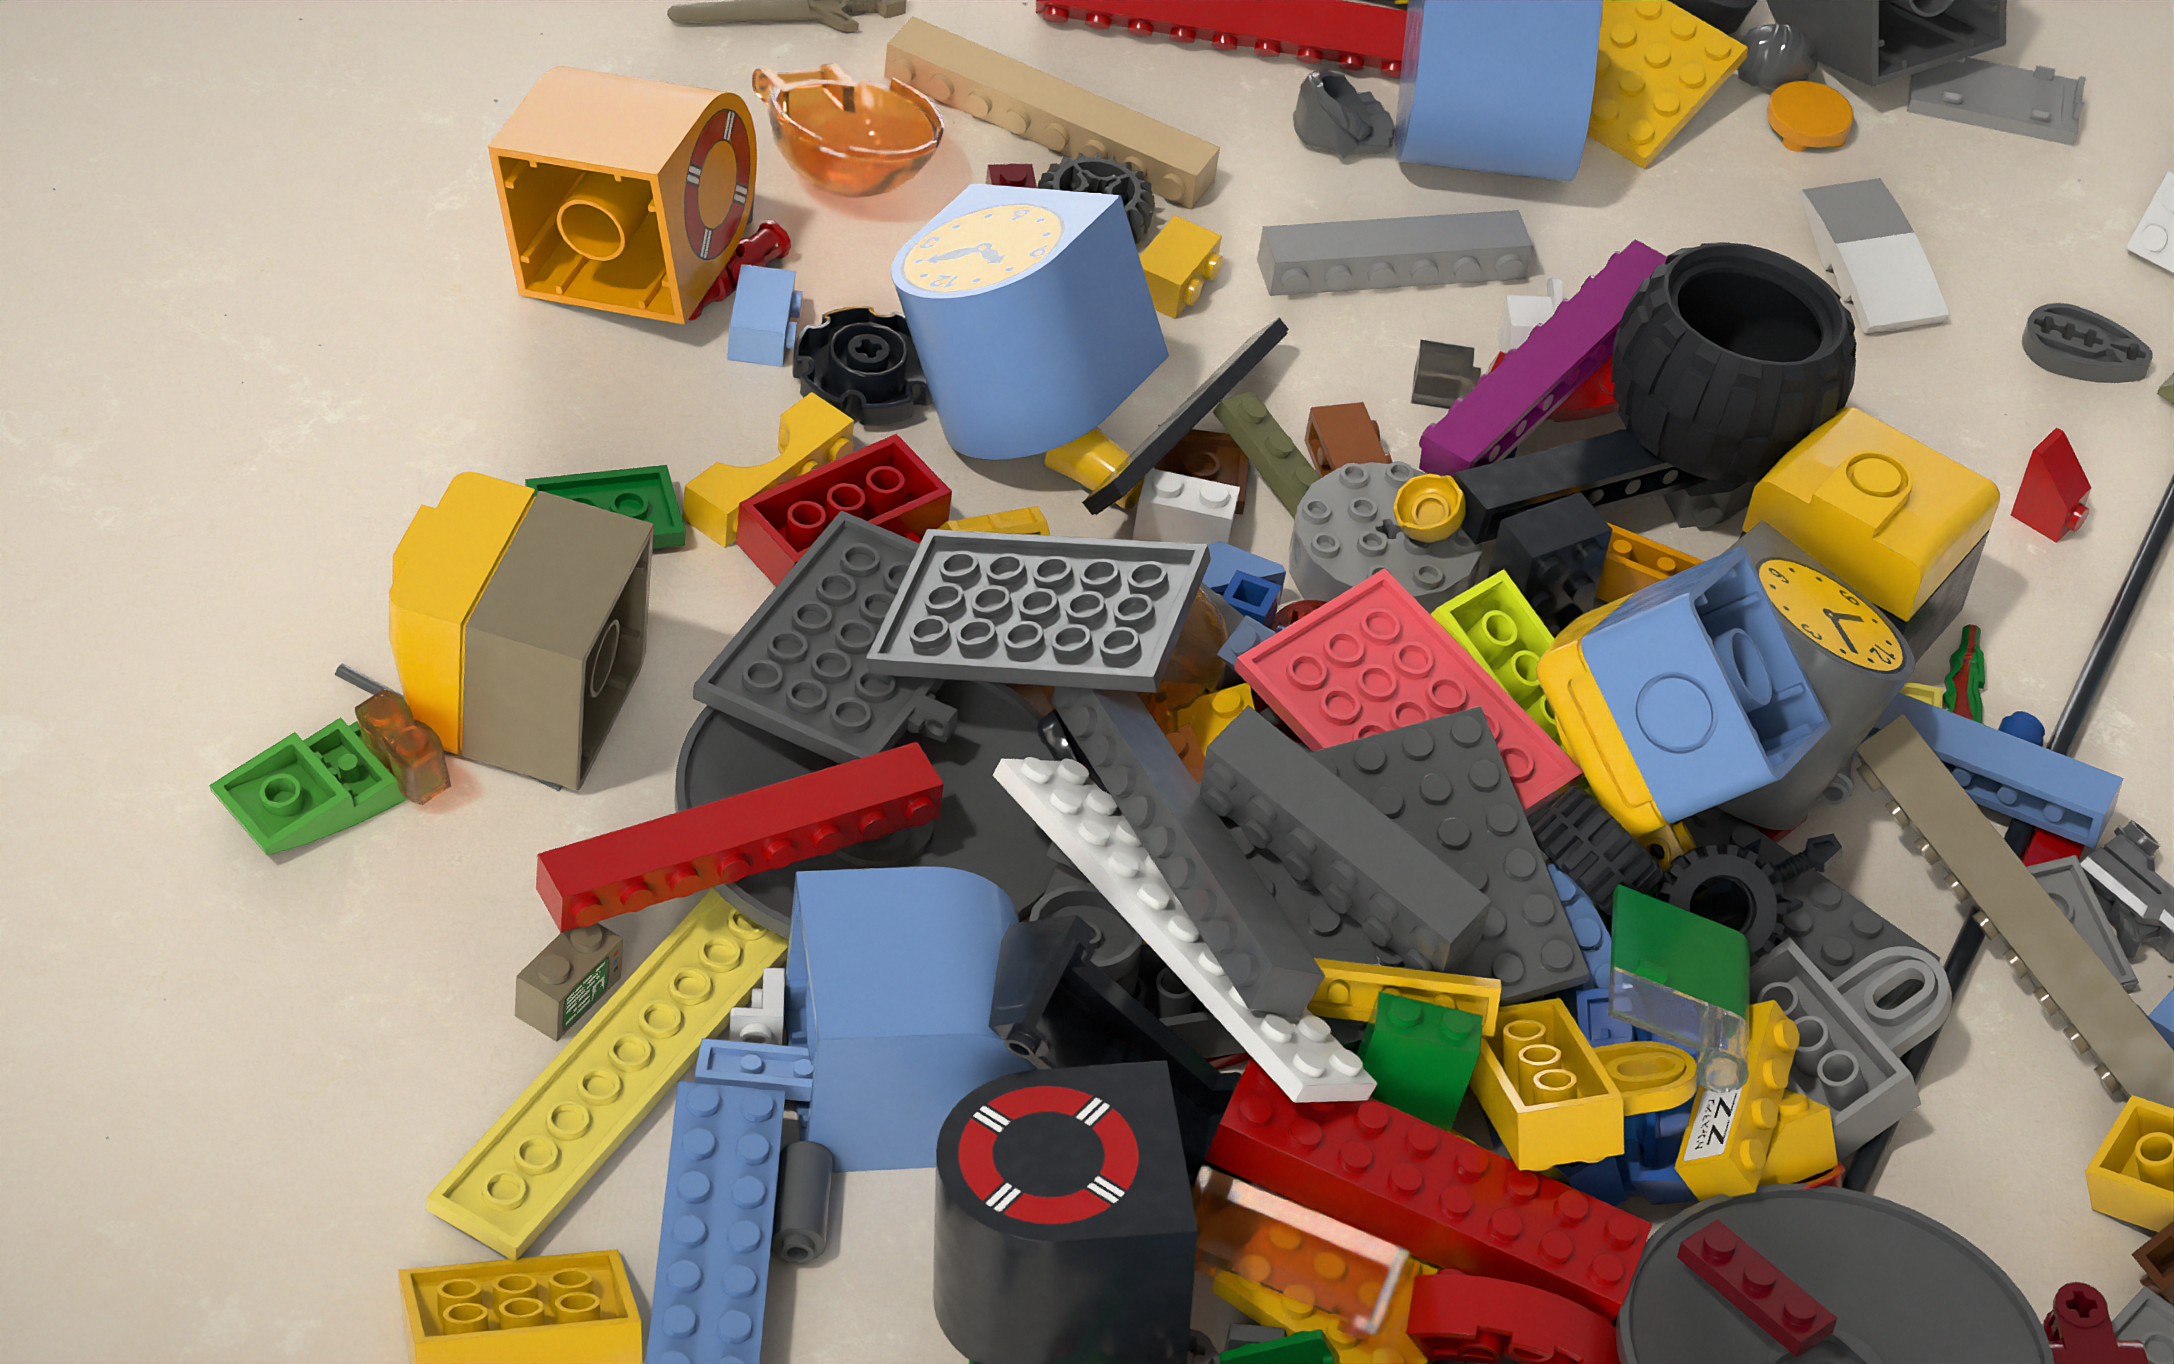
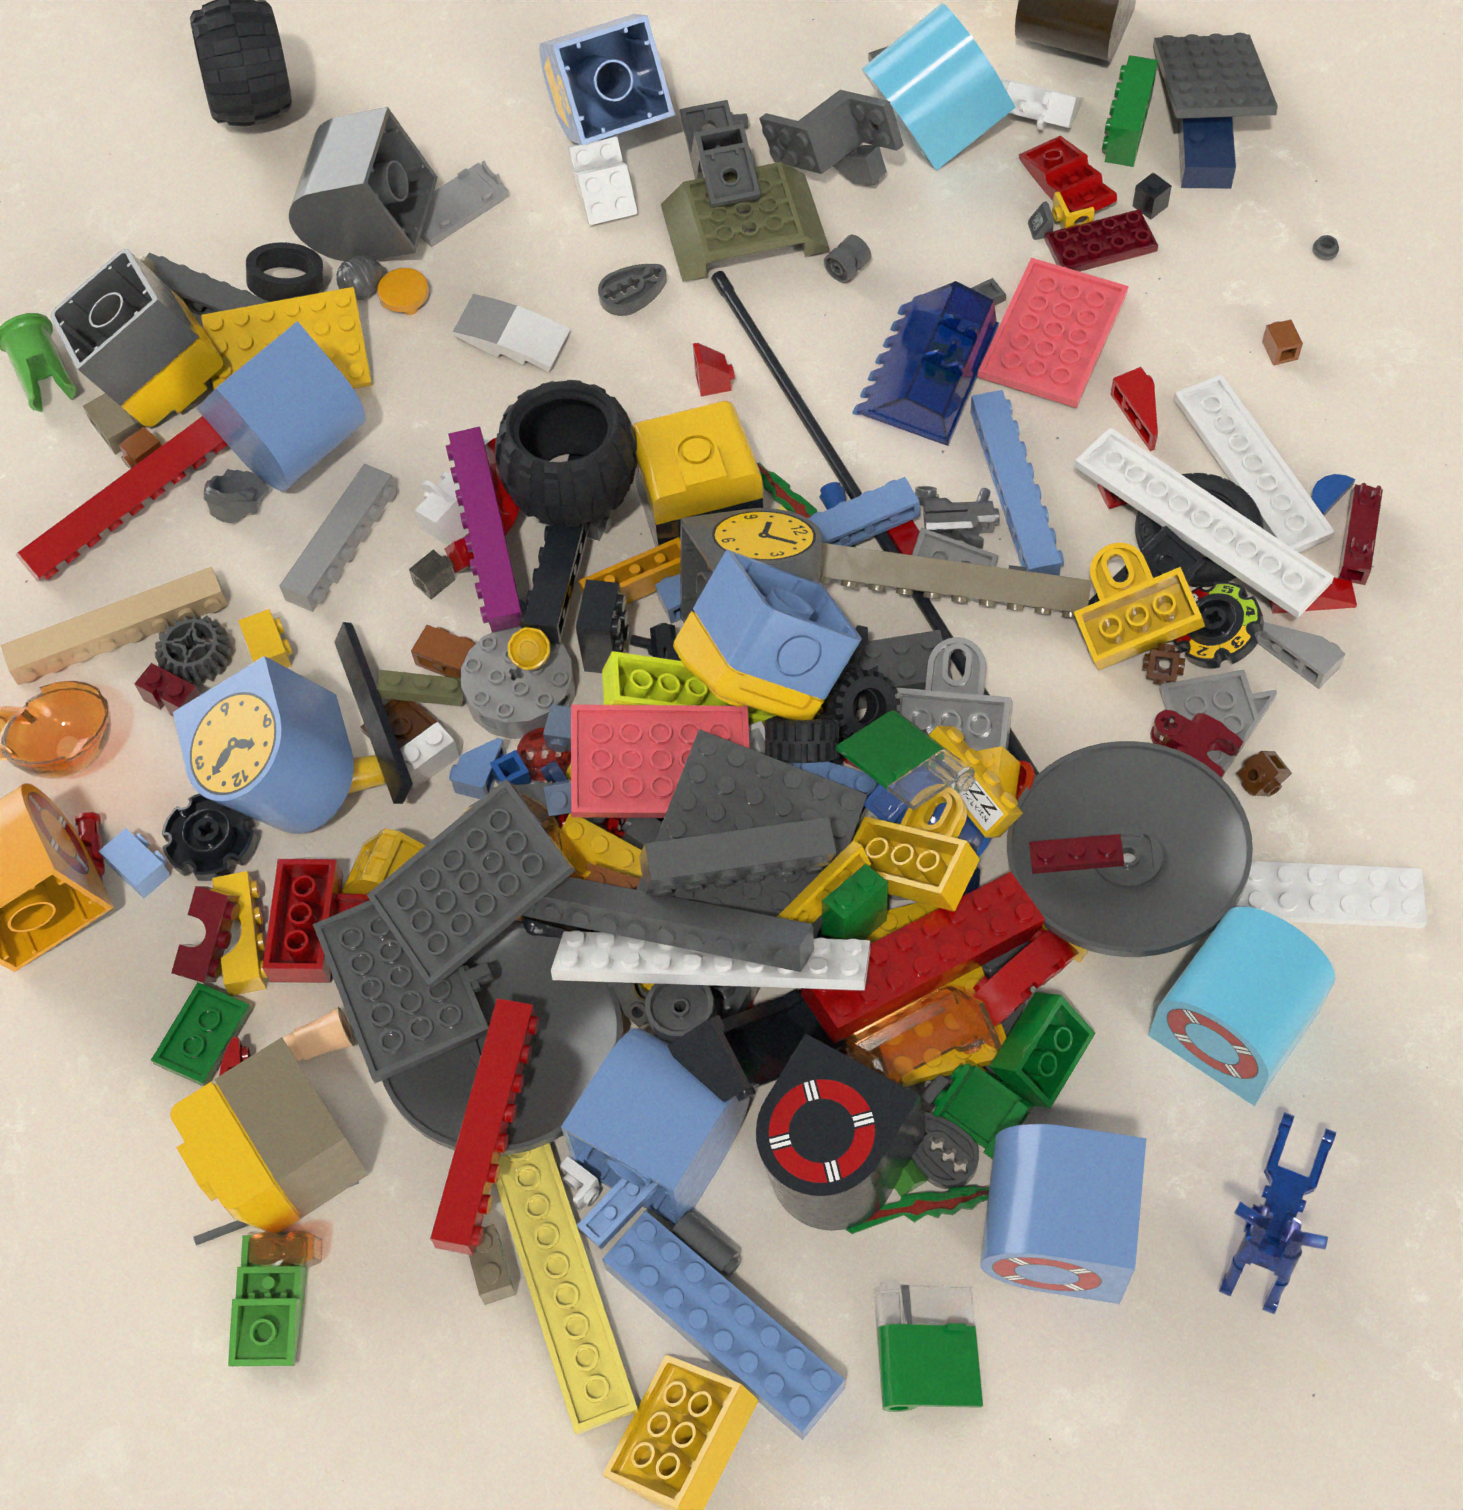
camera: 40 degrees left, 15 degrees up
(698, 621) = (321, 1036): none -> light nougat plant
(765, 420) = (217, 912): none -> dark red arch

